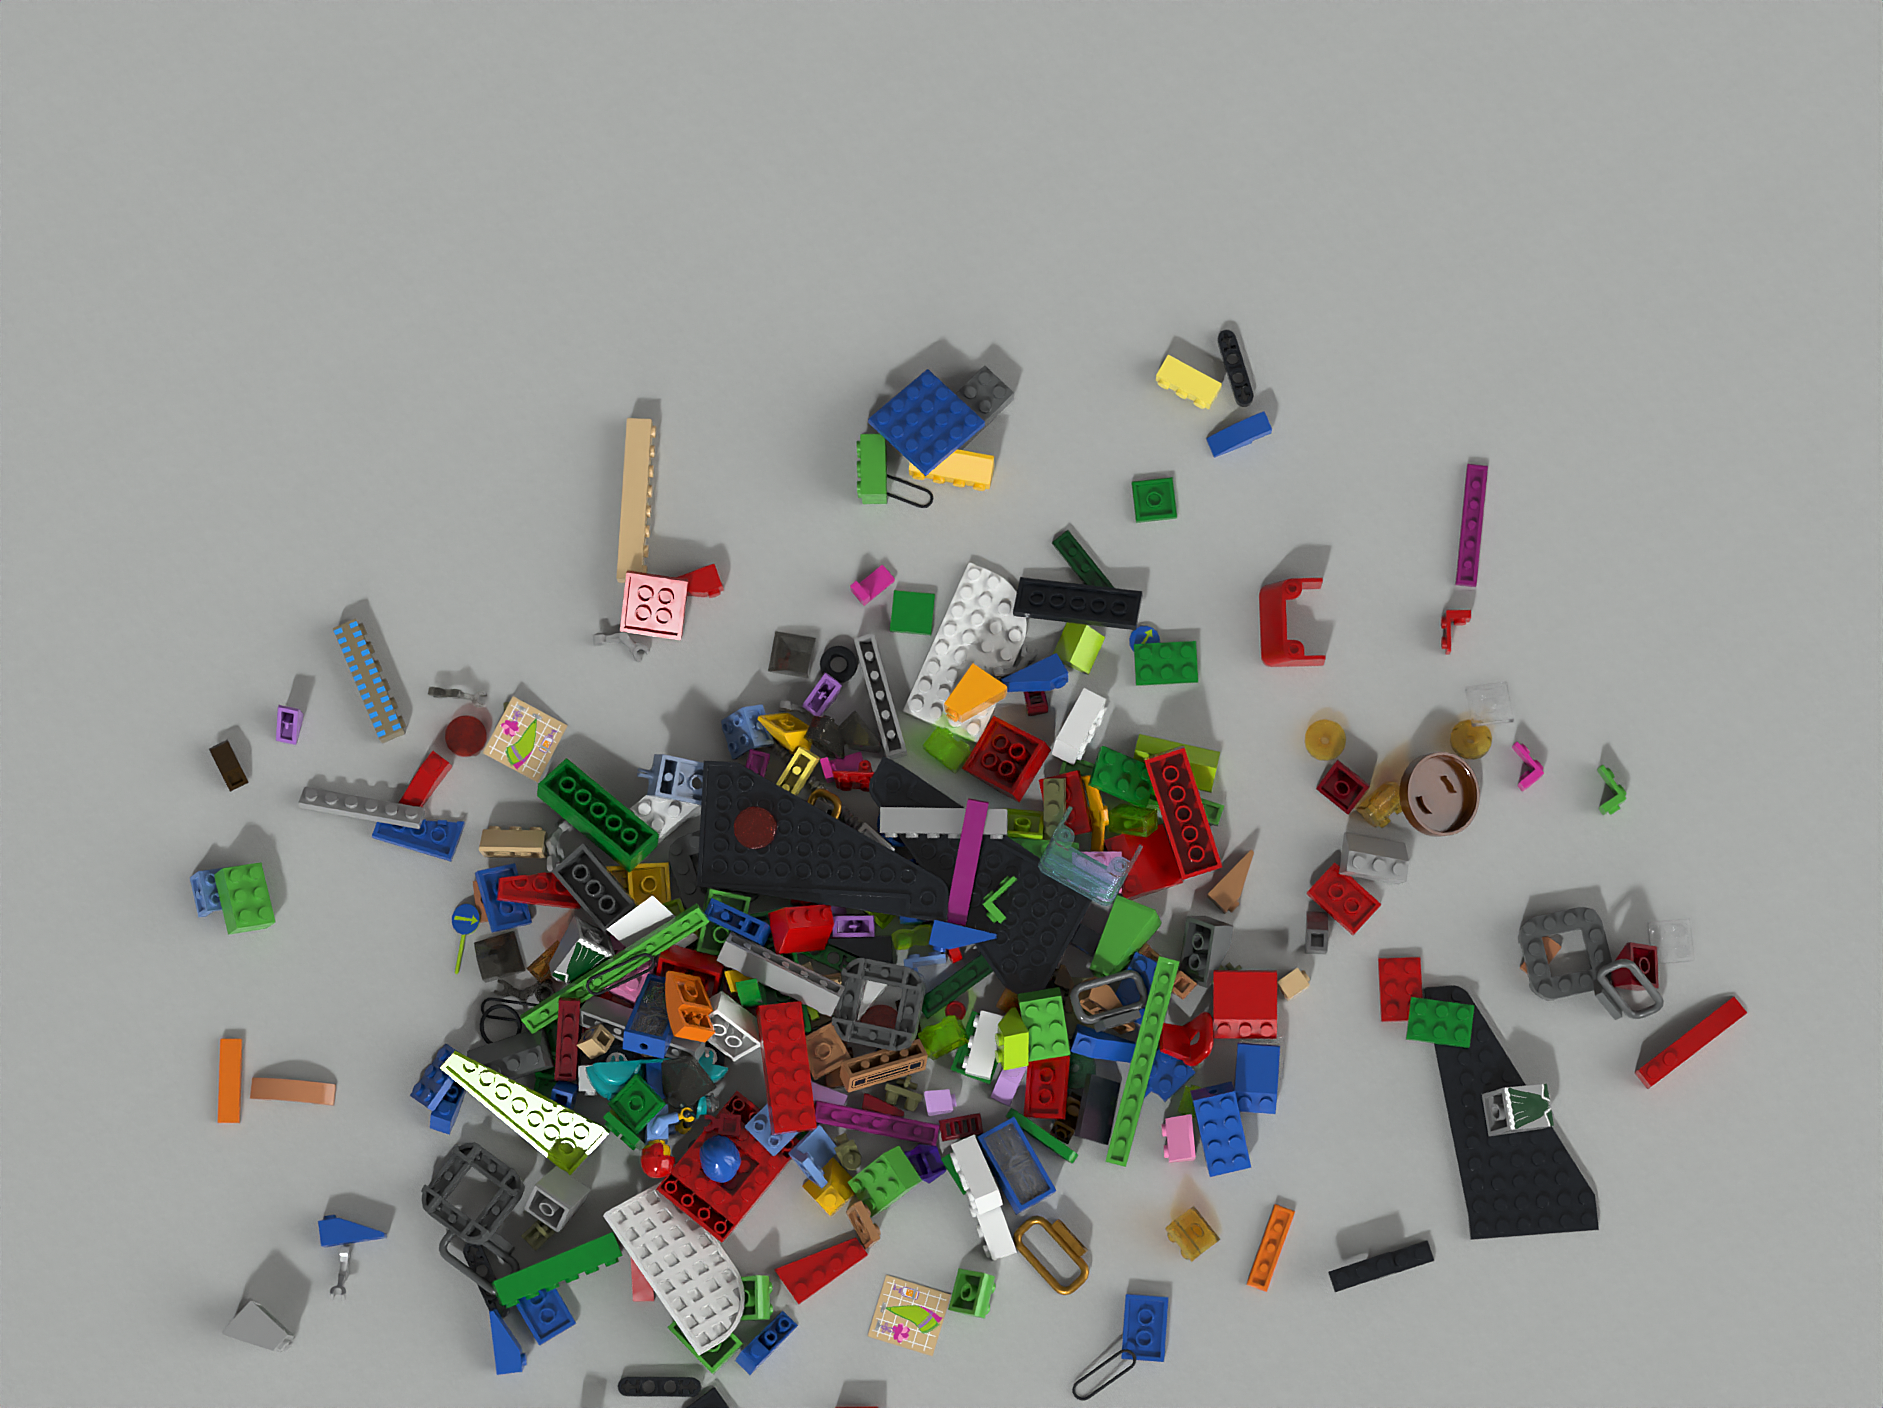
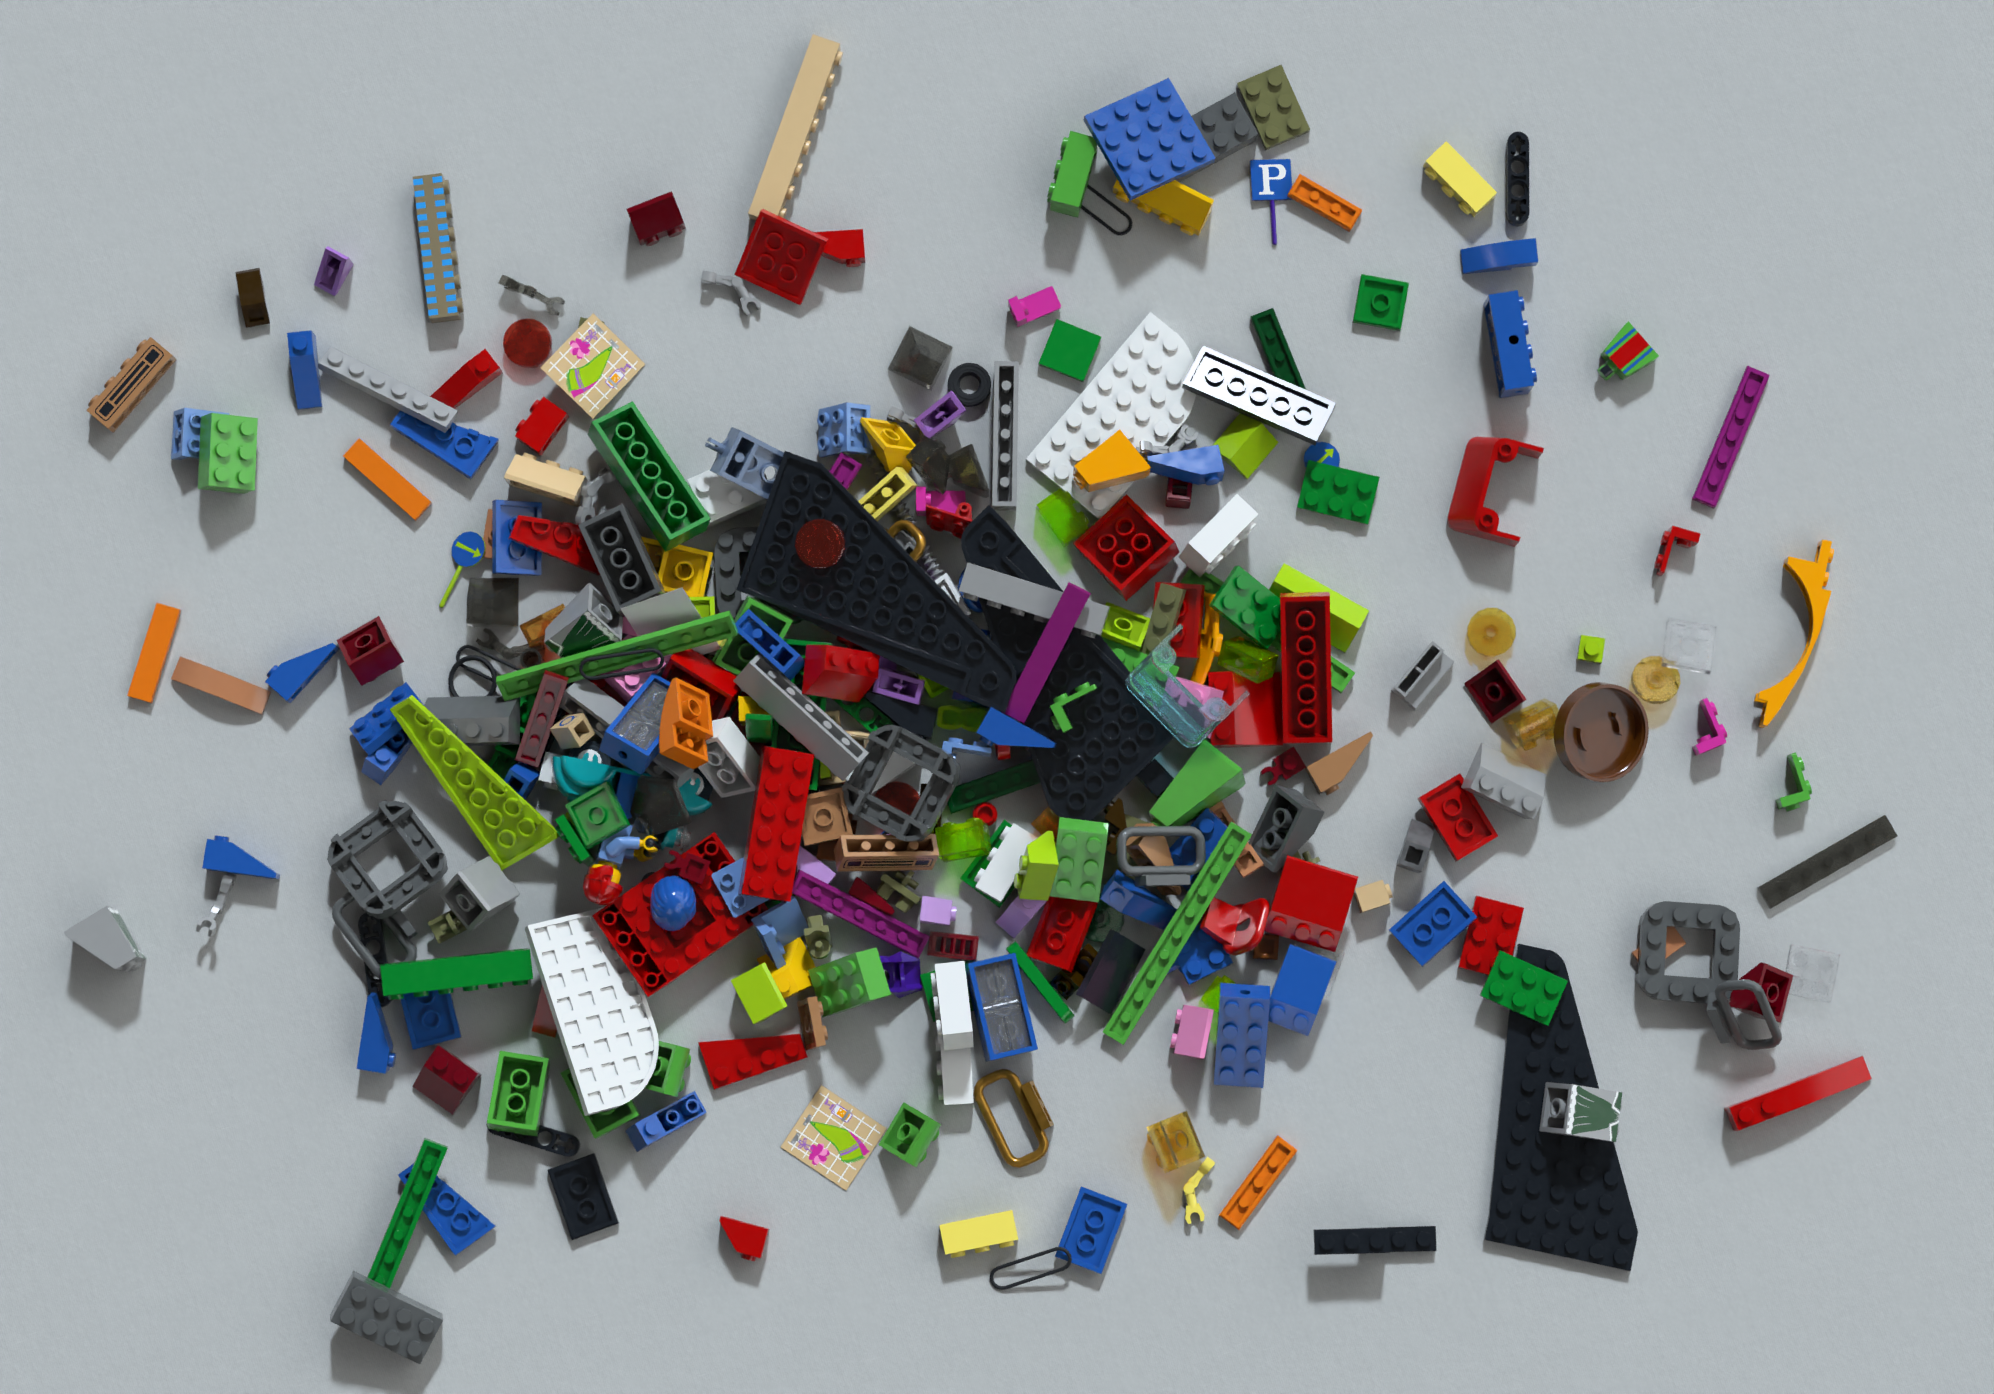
camera: 10 degrees right, 5 degrees up
(148, 865) = (131, 384): none -> medium nougat brick
(288, 811) = (305, 369): none -> blue slope
(353, 1062) = (295, 674): none -> blue slope
(382, 881) = (387, 479): none -> orange tile
(408, 1026) = (370, 651): none -> dark red slope
(496, 800) = (541, 425): none -> red brick
(542, 604) = (656, 219): none -> dark red slope
(573, 1362) = (446, 1079): none -> dark red slope
(637, 1355) = (518, 1093): none -> bright green brick
(813, 1212) = (759, 993): none -> lime slope
(1019, 368) = (1273, 107): none -> olive plate
(1036, 428) = (1271, 182): none -> blue piece
(1053, 1358) = (979, 1233): none -> light yellow brick
(1084, 433) = (1324, 202): none -> orange tile
(1190, 897) = (1286, 764): none -> dark red plate
(1215, 1269) = (1189, 1190): none -> light yellow piece
(1220, 1052) = (1267, 948): none -> dark orange tile
(1268, 502) = (1509, 344): none -> blue brick
(1280, 792) = (1422, 675): none -> light grey piece
(1350, 991) = (1433, 923): none -> blue plate
(1366, 483) = (1626, 354): none -> torso
(1410, 730) = (1590, 649): none -> lime plate
(1571, 620) = (1810, 579): none -> light orange slope
(1656, 846) = (1827, 861): none -> clear smoke tile

